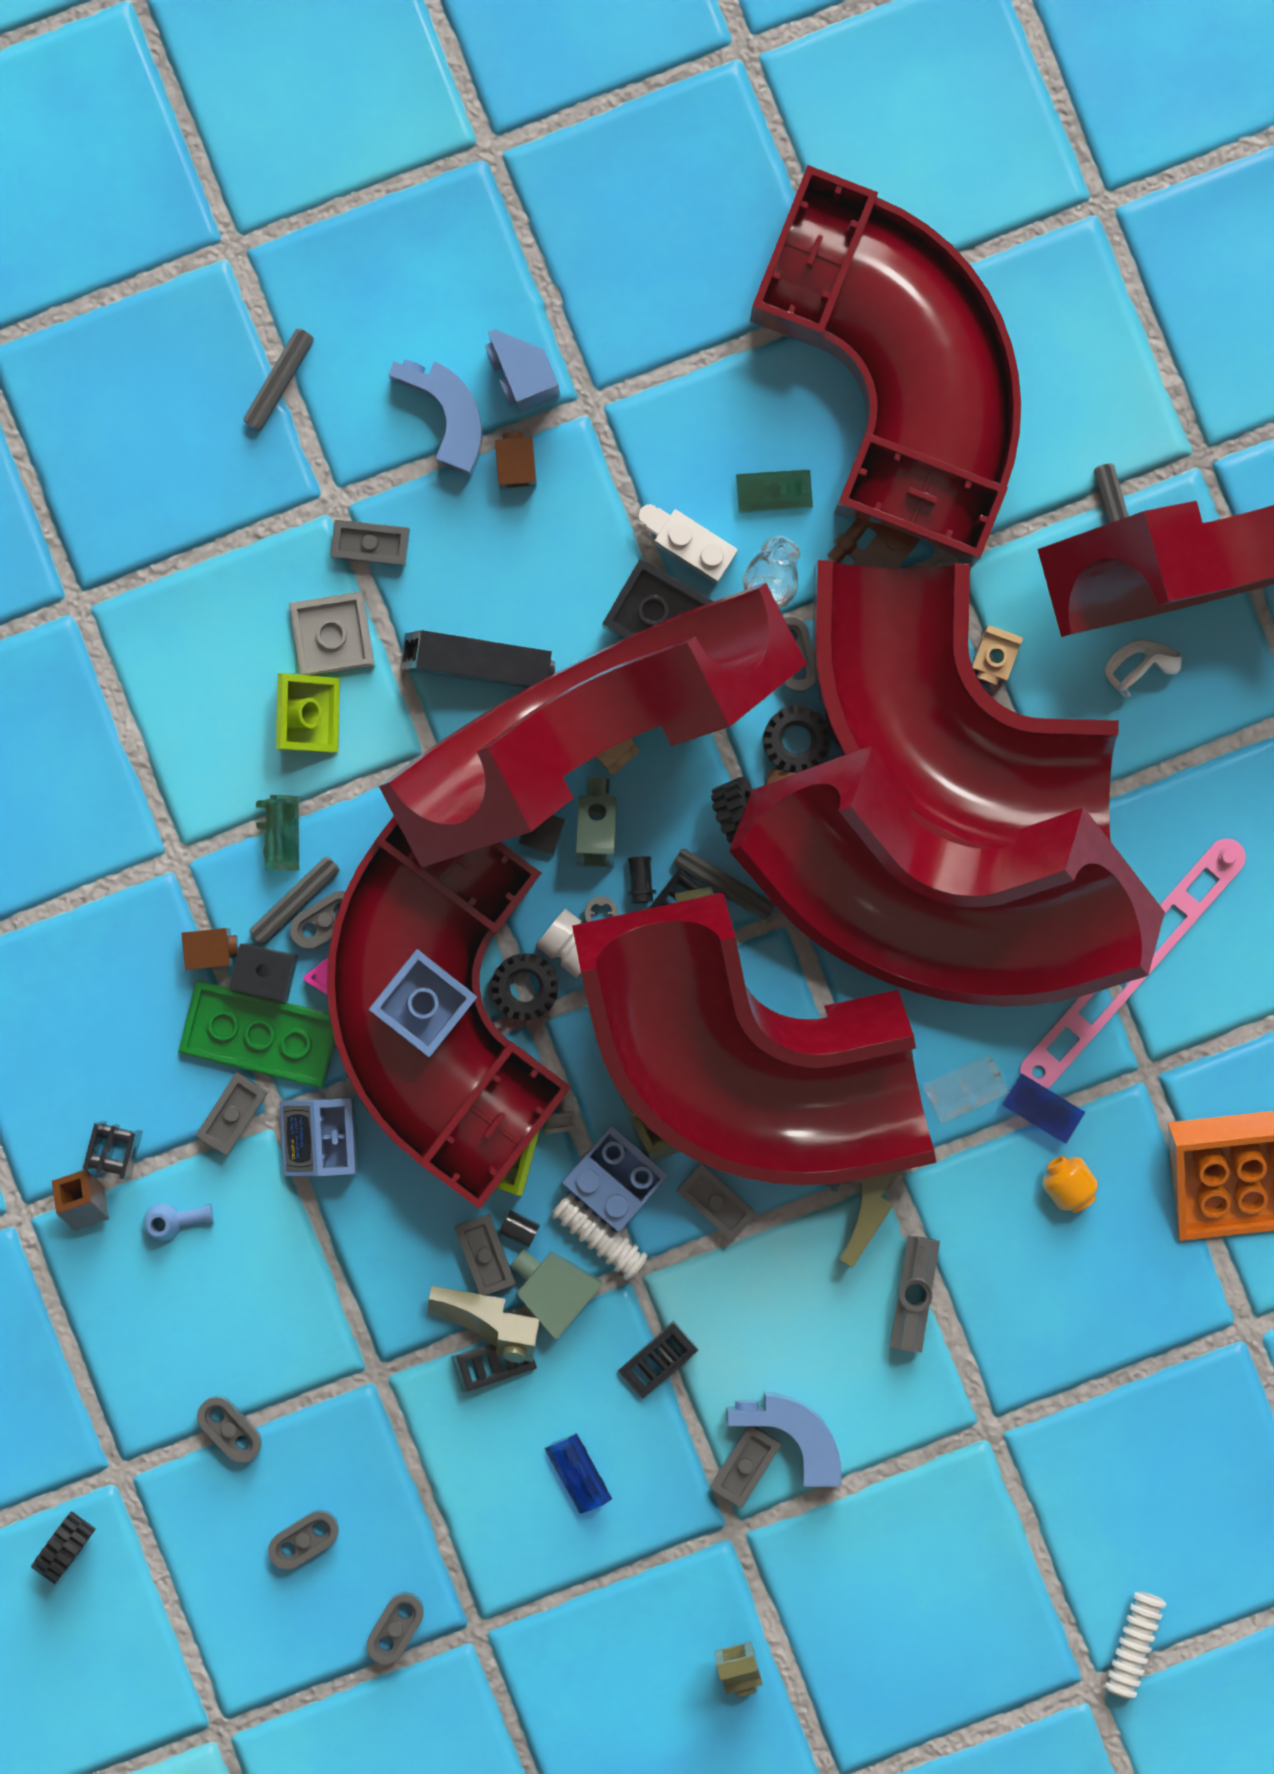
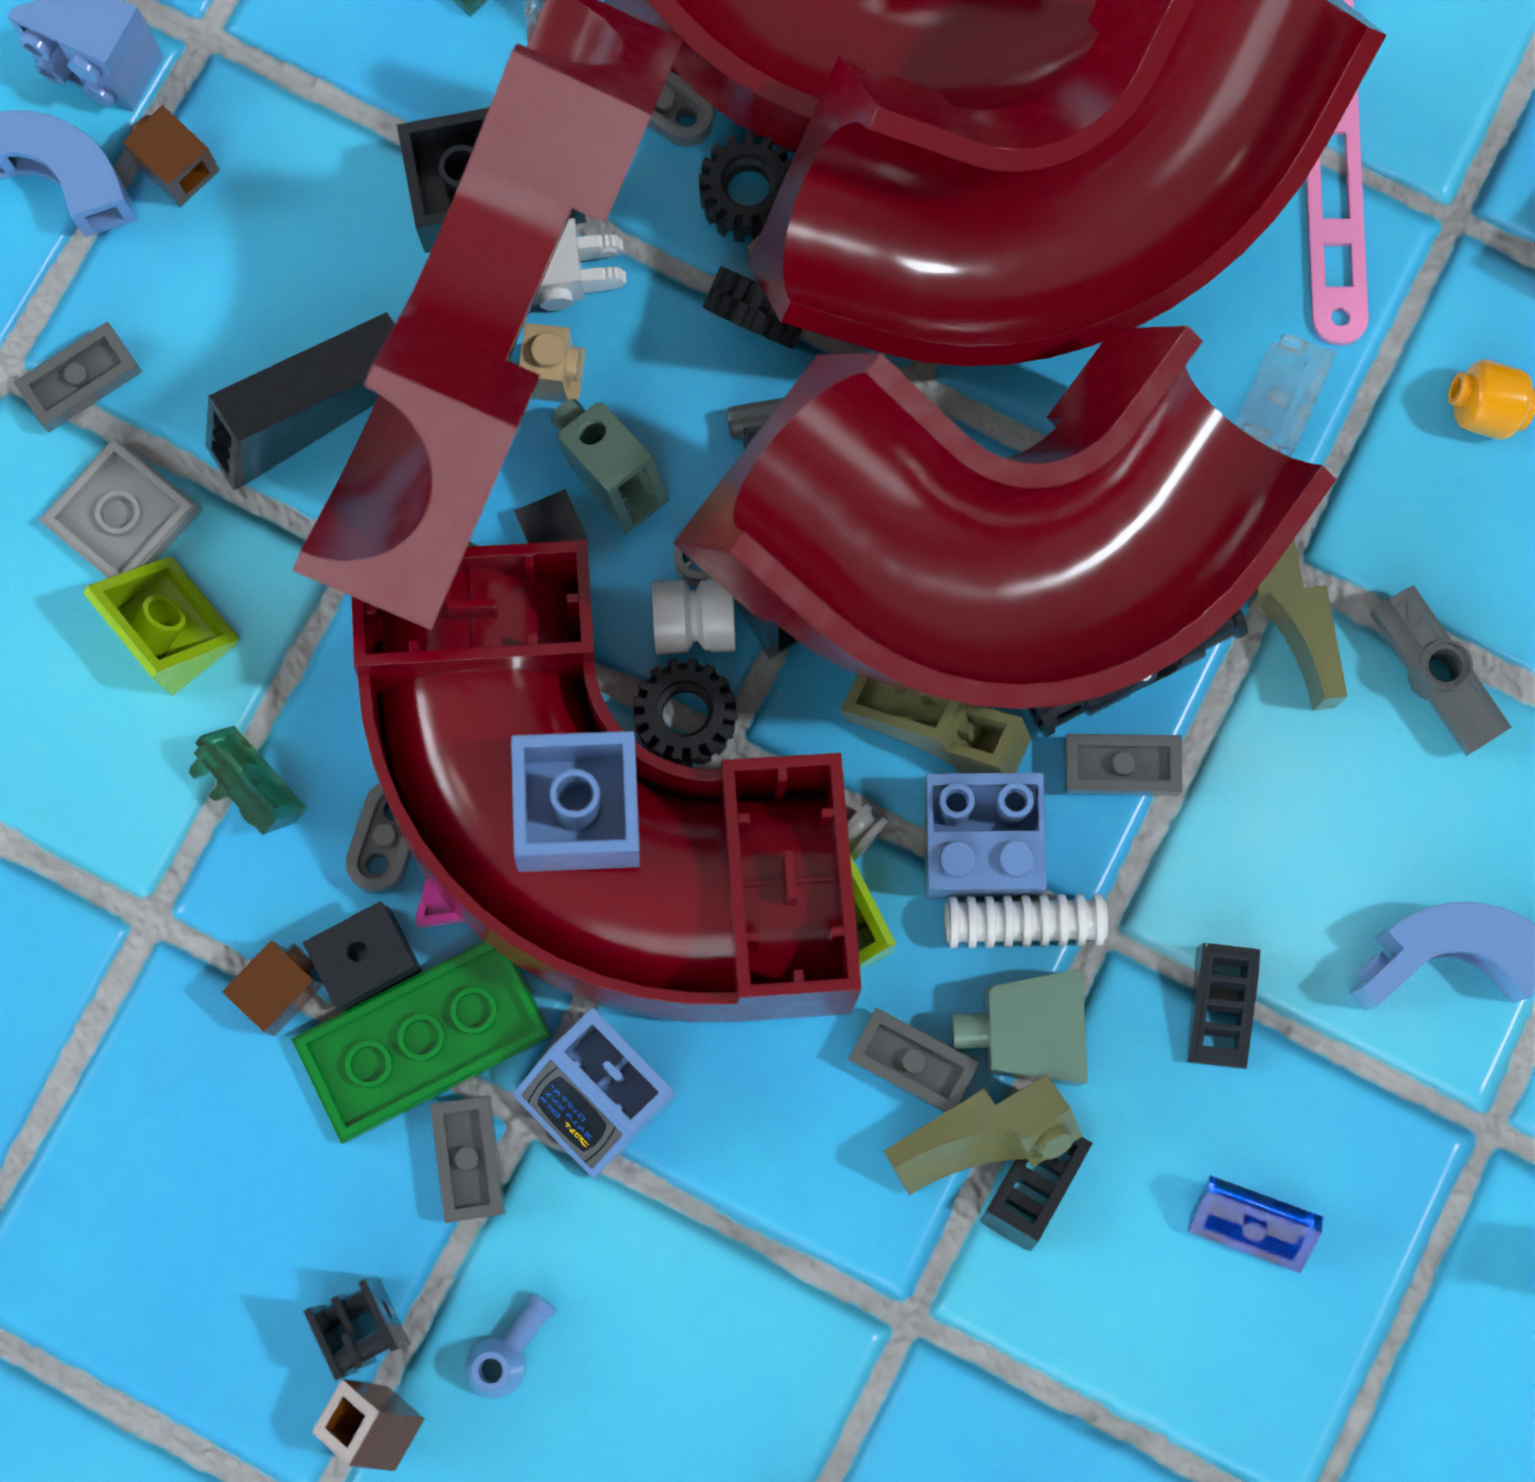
camera: 40 degrees left, 10 degrees down
(294, 900) = (330, 846): dark grey axle -> none
(519, 1228) = (926, 995): black hinge -> none
(640, 879) = (699, 472): black pin -> none
(688, 542) = (434, 76): white hinge -> none
(745, 1465) = (1436, 1039): dark grey plate -> none
(1043, 1108) = (1385, 346): clear blue plate -> none

